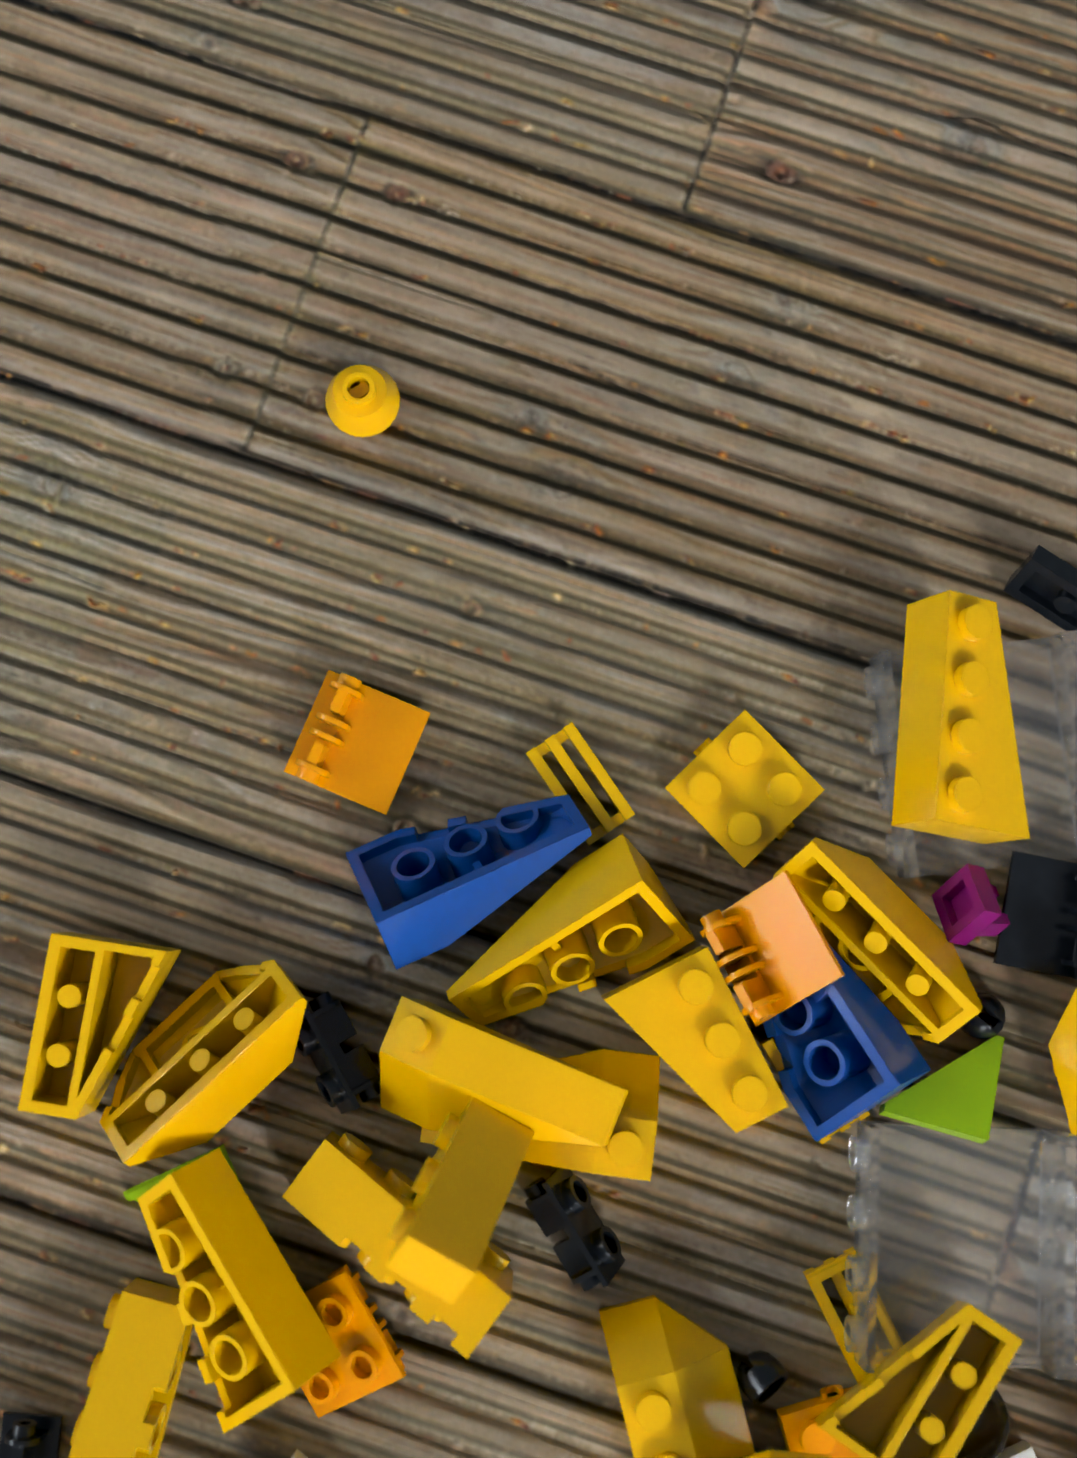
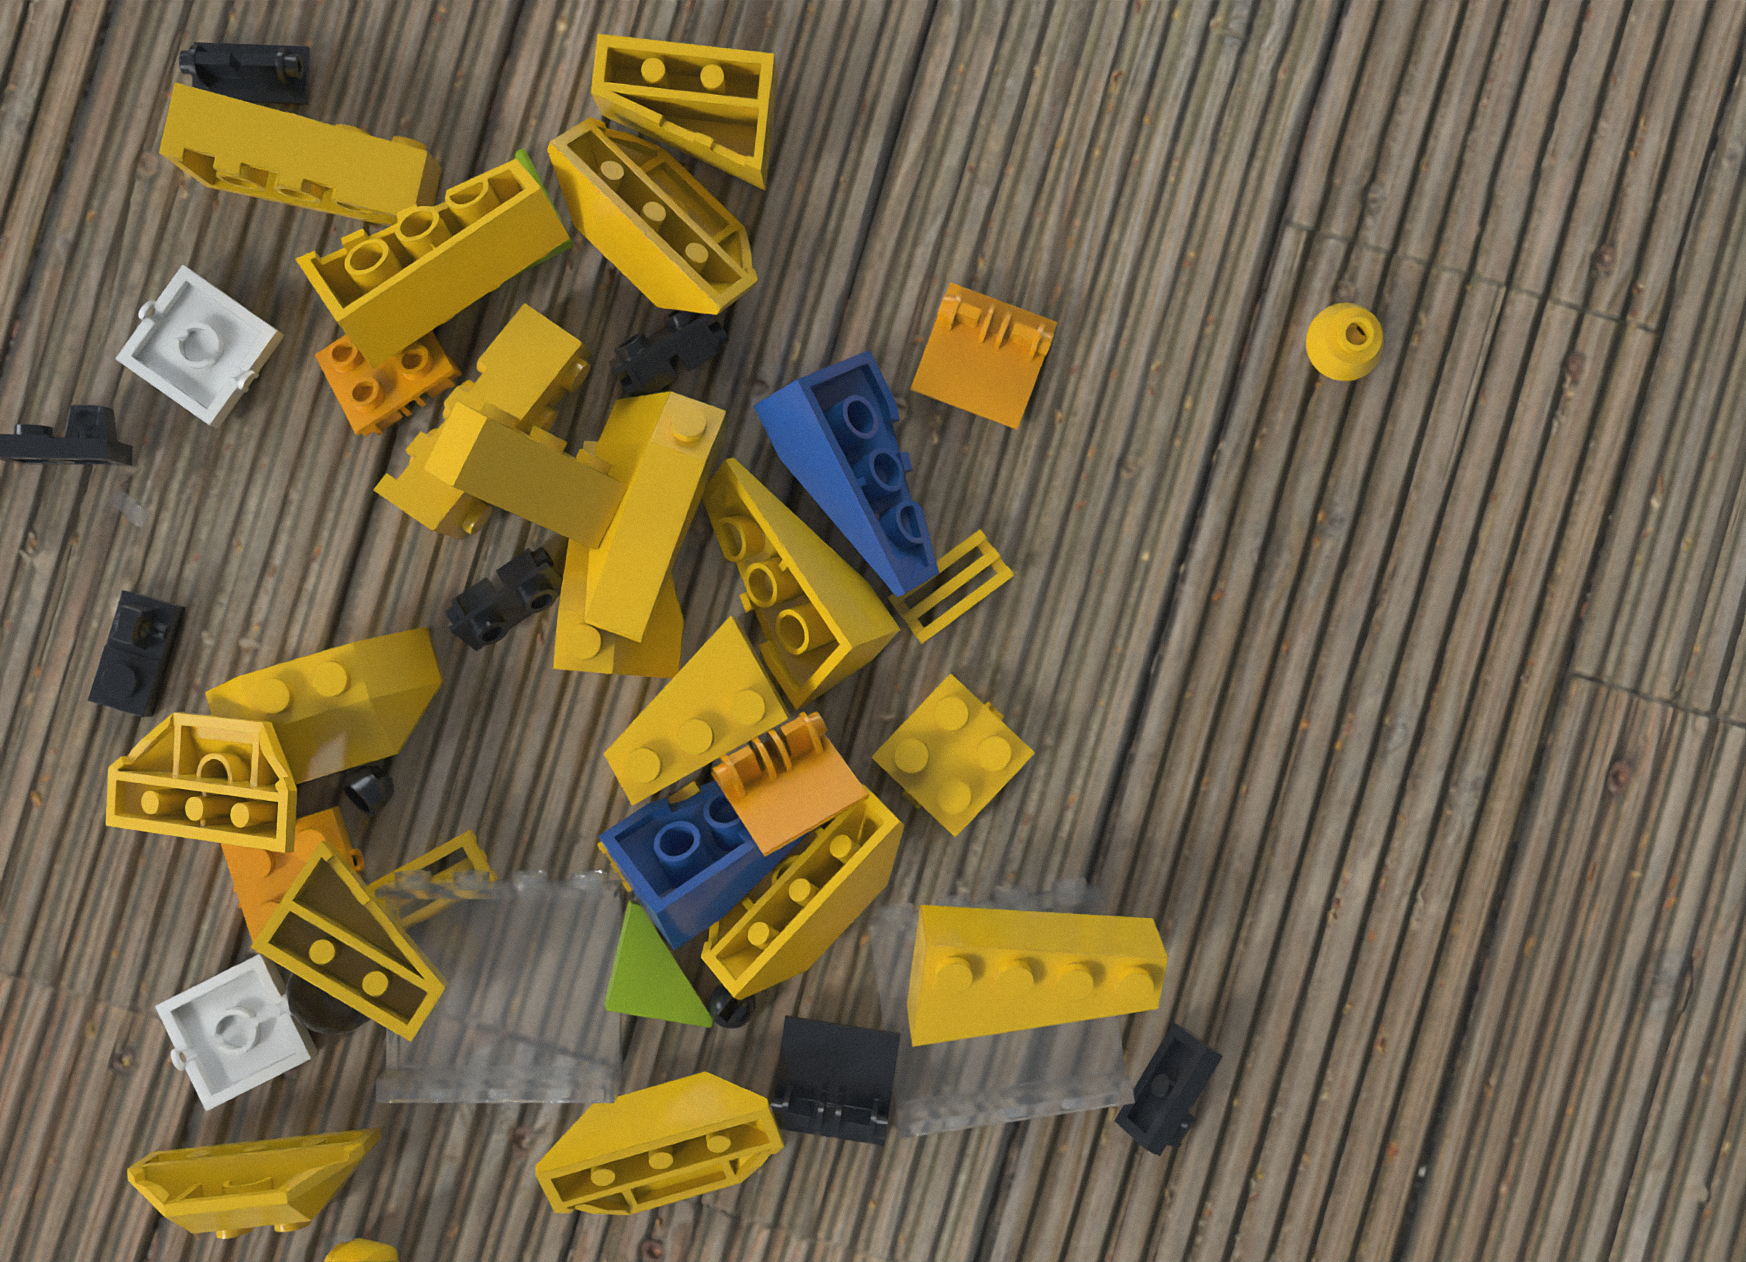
camera: 90 degrees right, 5 degrees up
(969, 906) = (841, 989): magenta tile -> none

